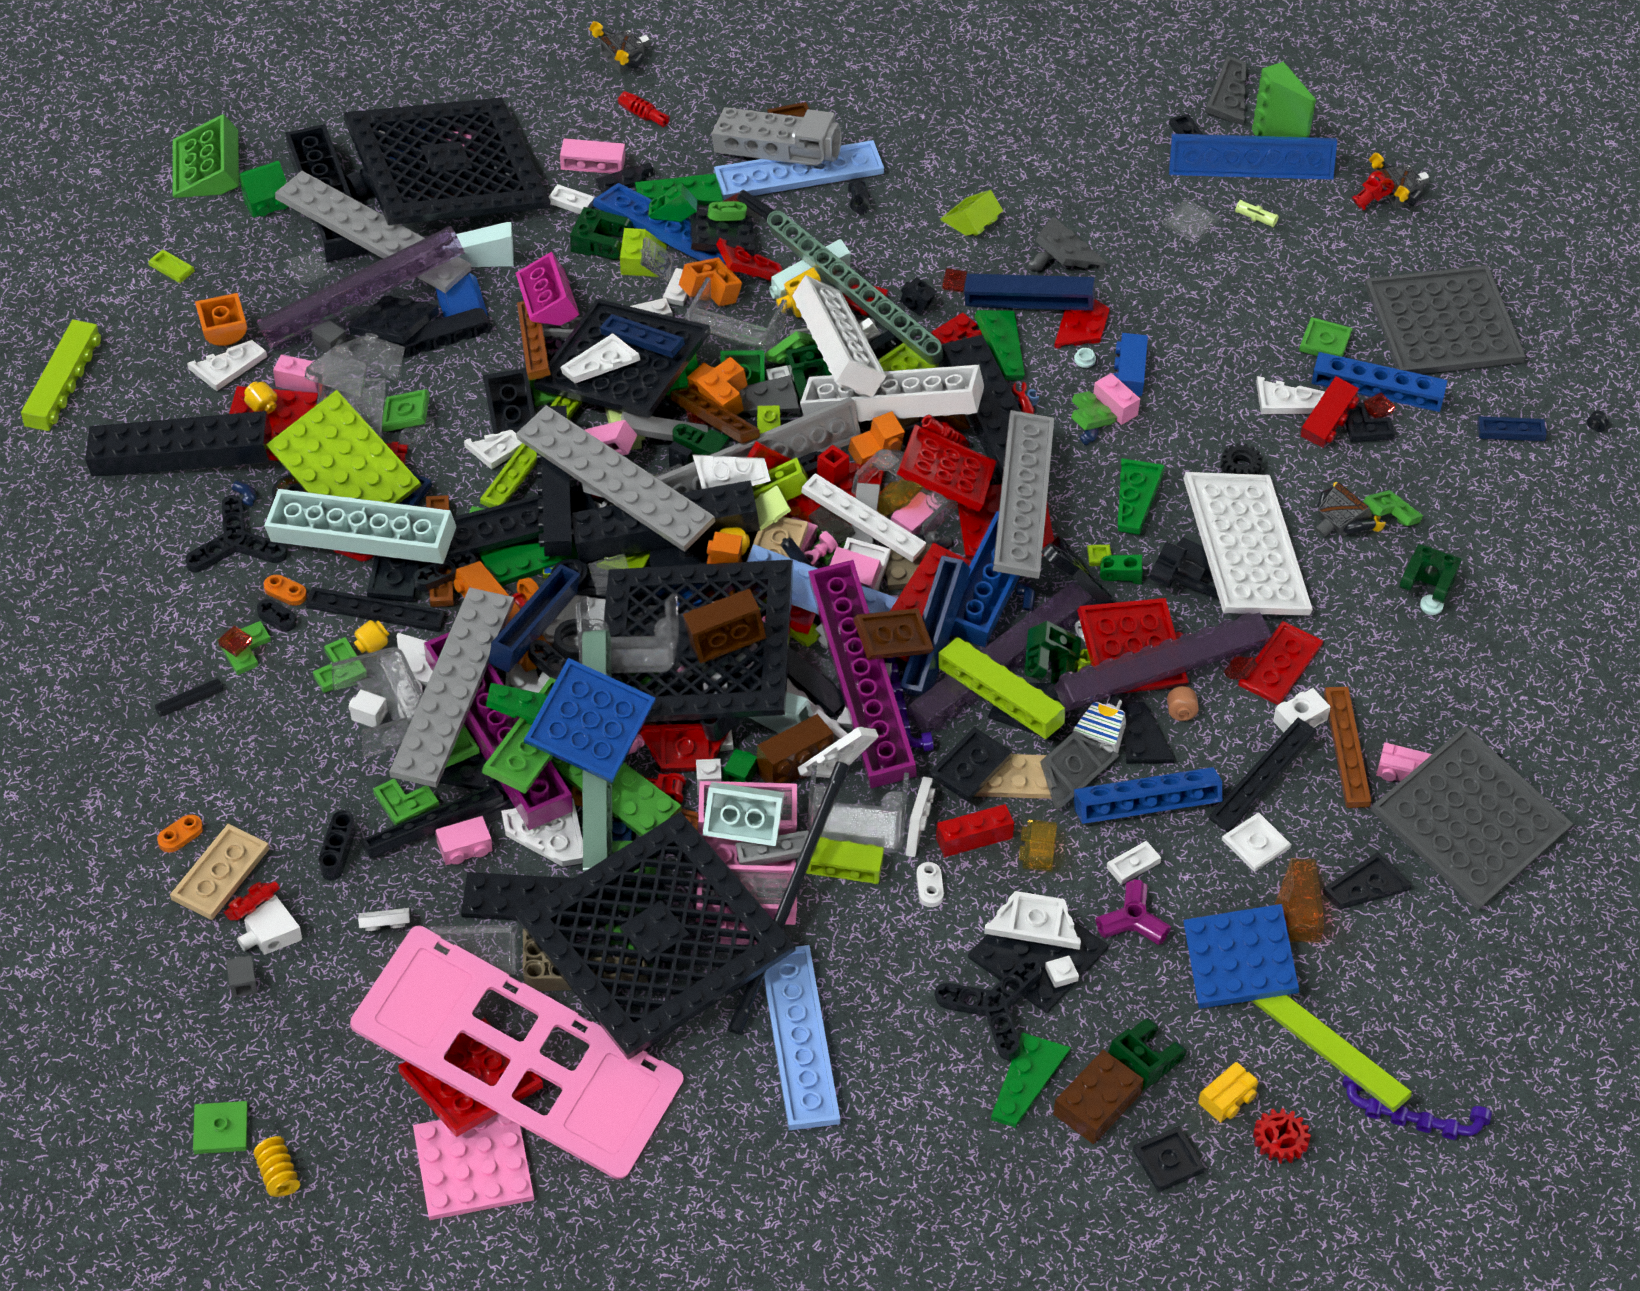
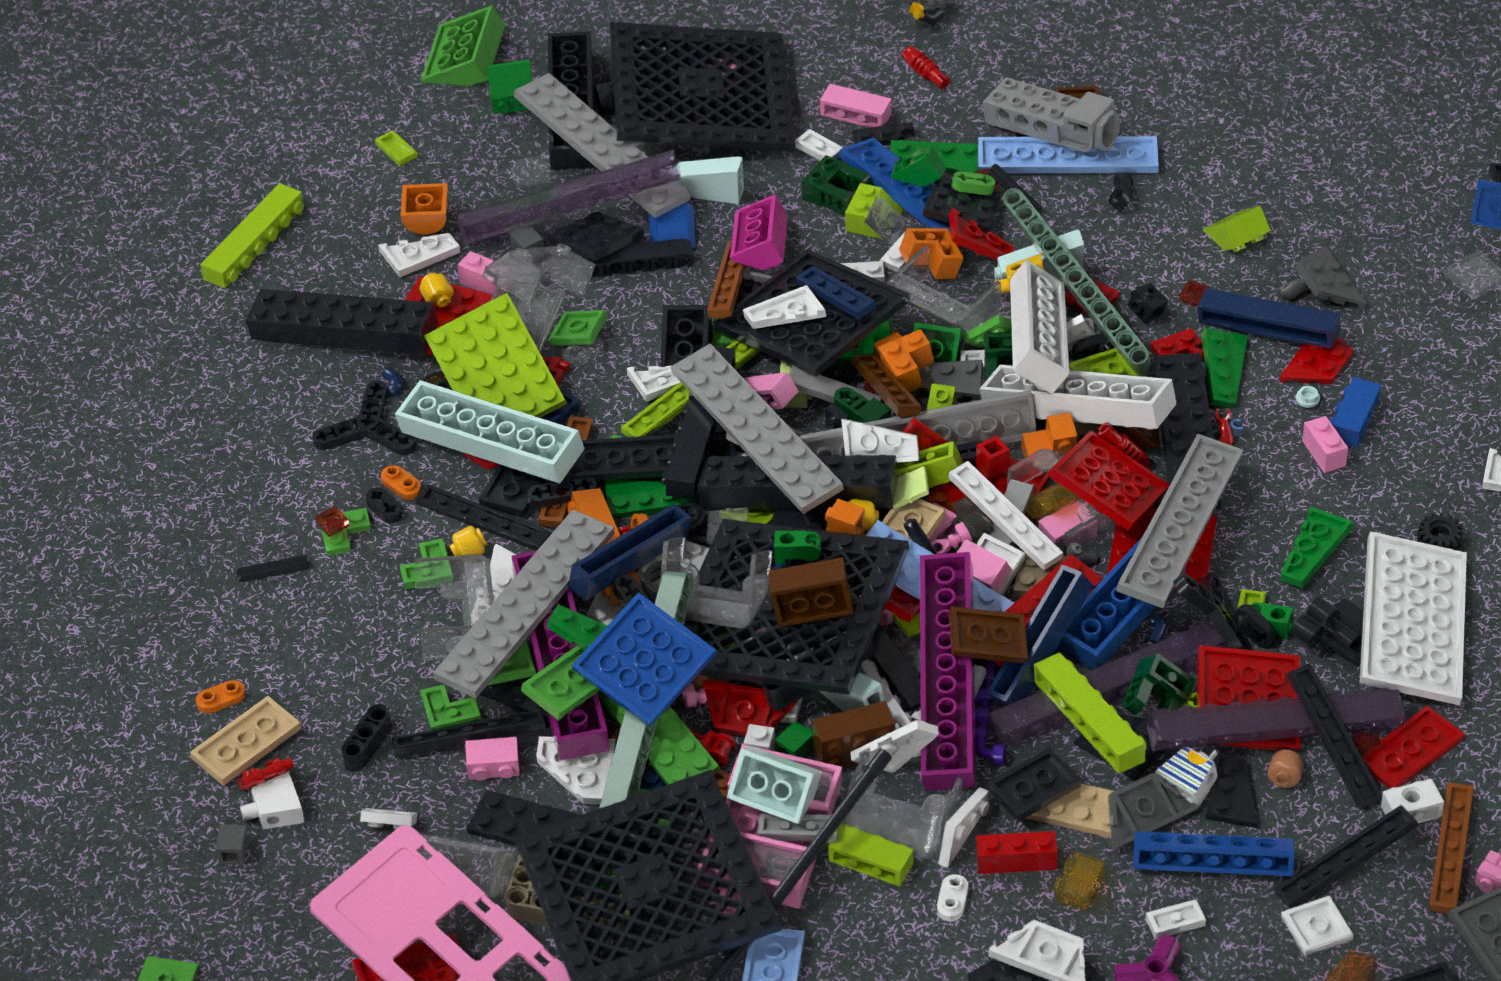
camera: 20 degrees right, 5 degrees down
(368, 708) = (441, 611): white brick -> none
(692, 583) = (796, 545): none -> green leg
(1089, 435) = (1286, 474): dark blue arm -> none
(1091, 411) = (1294, 453): bright green plate -> none
(1113, 577) = (1254, 625): none -> black beam
(1220, 666) = (1334, 736): none -> black tile

